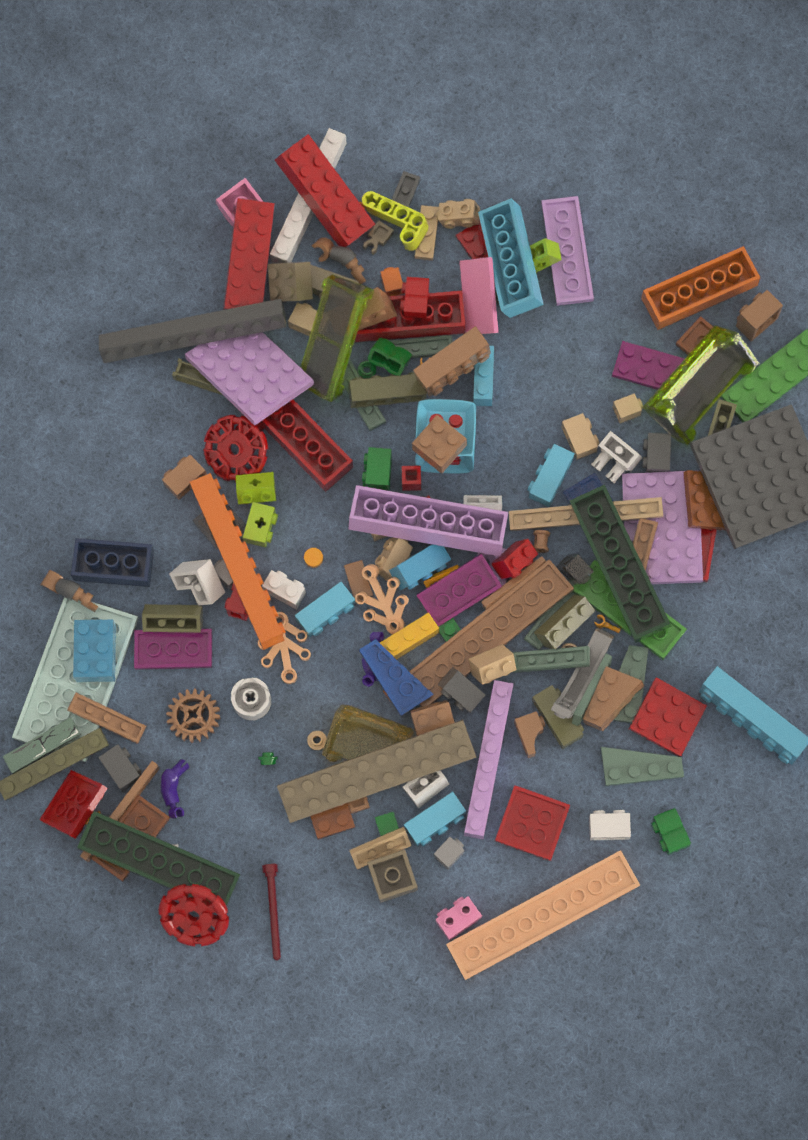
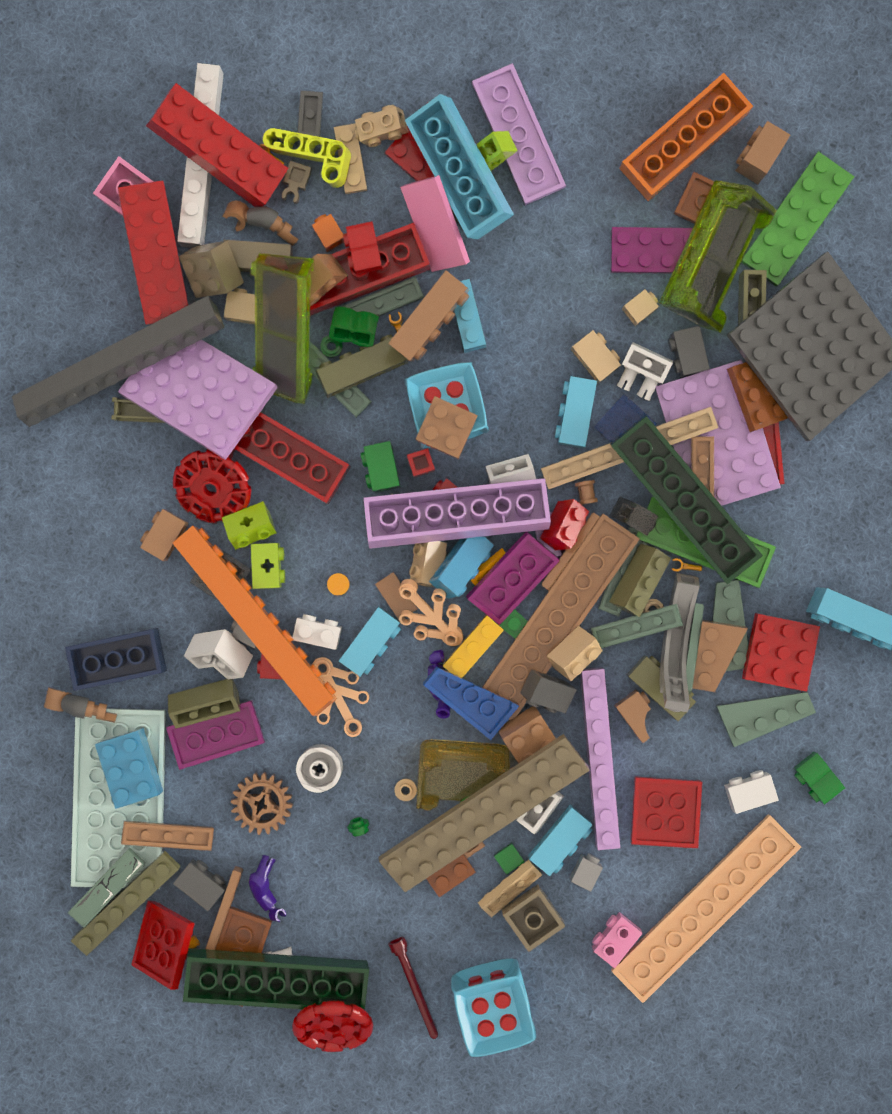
camera: 20 degrees left, 15 degrees up
(335, 936) = (493, 1007): none -> medium azure piece

